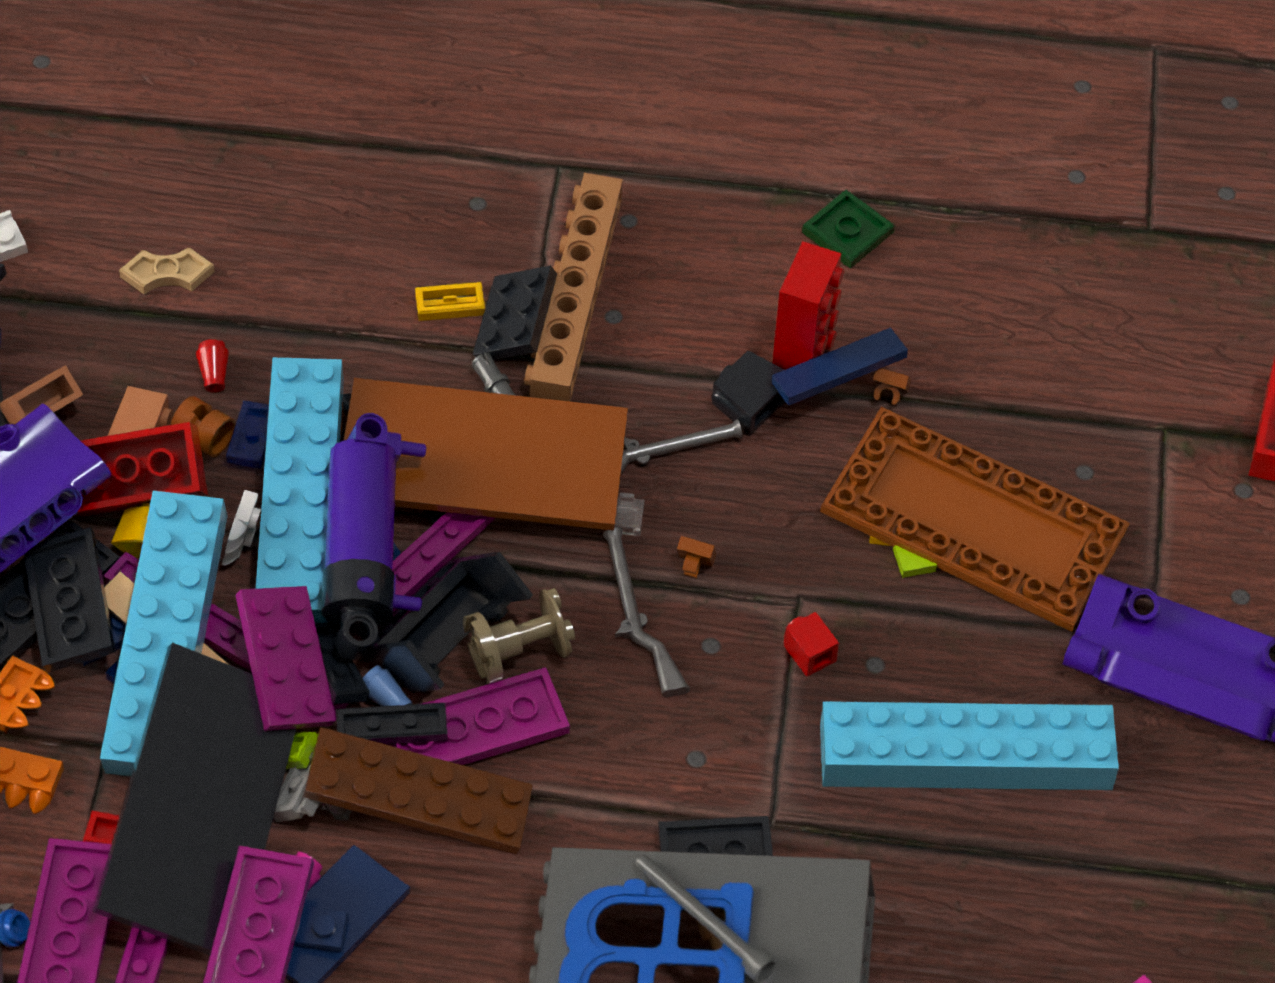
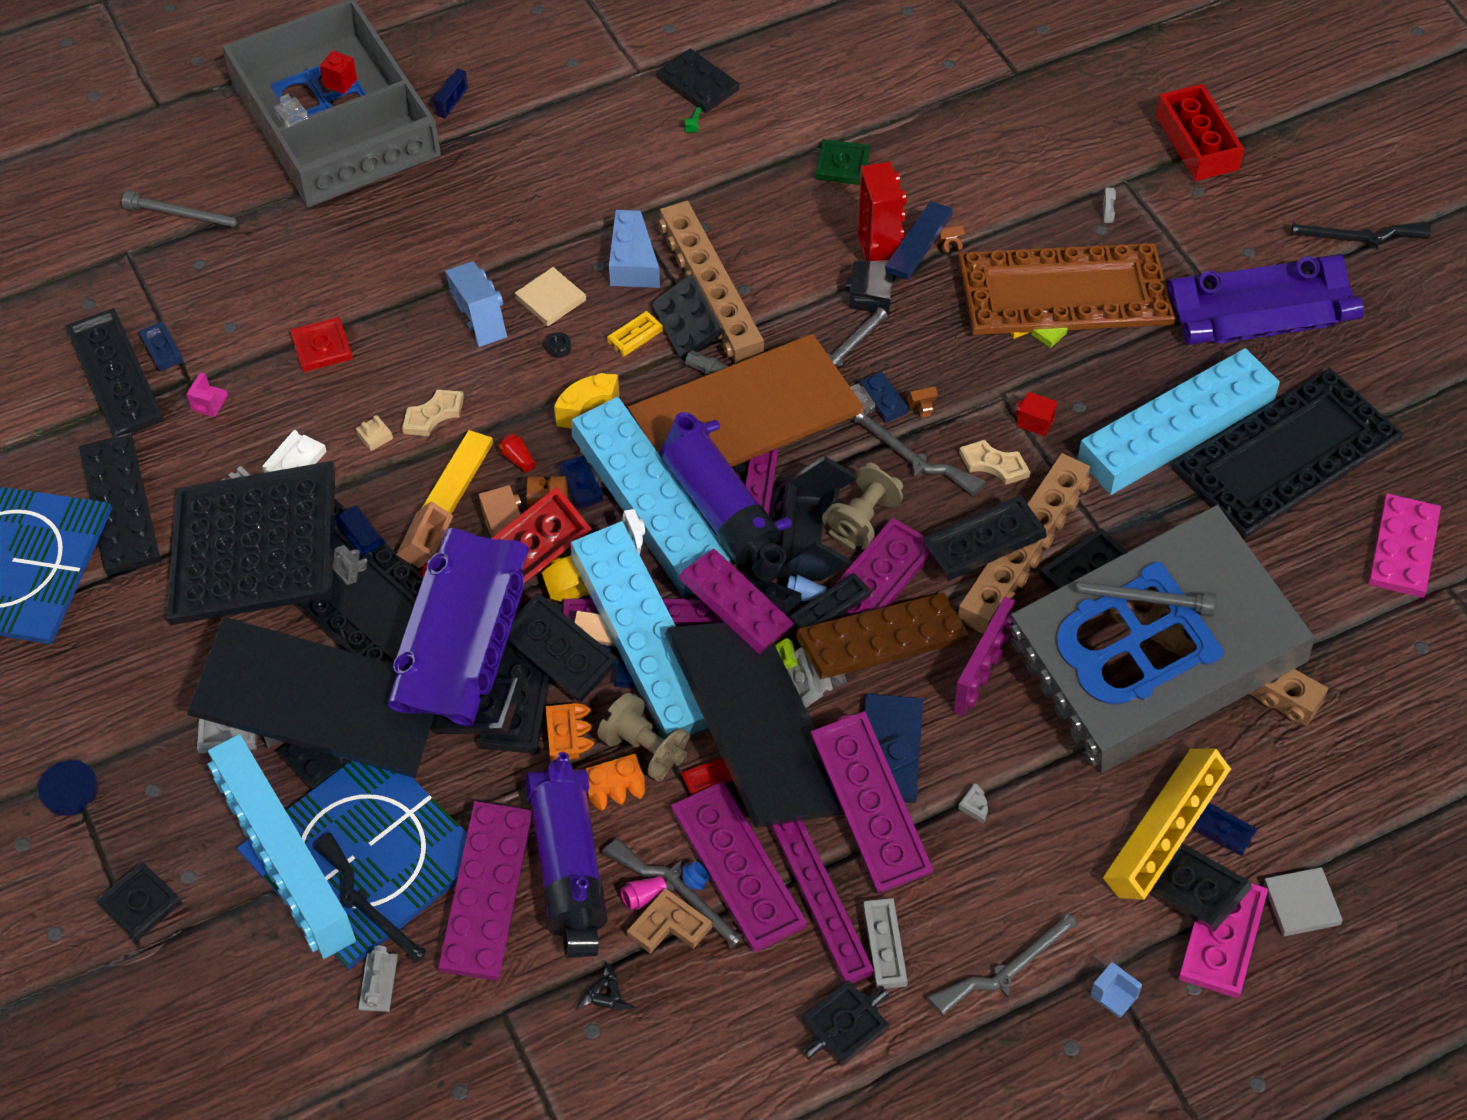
camera: 30 degrees left, 0 degrees up
(71, 723) = (629, 725): none -> dark tan piece
(88, 259) = (374, 433): none -> tan tile
(114, 131) = (321, 344): none -> red tile
(135, 354) = (460, 471): none -> yellow tile
(305, 172) = (479, 301): none -> medium blue wedge
(333, 341) = (585, 396): none -> yellow brick
(357, 268) = (558, 344): none -> black tile
(394, 209) = (550, 296): none -> tan tile
(497, 882) = (986, 653): none -> magenta plate
(516, 204) = (632, 254): none -> medium blue wedge
(615, 747) = (984, 537): none -> black plate
(659, 526) = (886, 399): none -> dark blue plate
(680, 766) = (1050, 505): none -> medium nougat brick
(714, 94) = (691, 124): none -> green hand
(728, 682) = (1006, 466): none -> tan tile
(764, 45) = (697, 80): none -> black plate
(1072, 858) = (1287, 452): none -> black tile
(1113, 448) = (1108, 202): none -> light grey tile

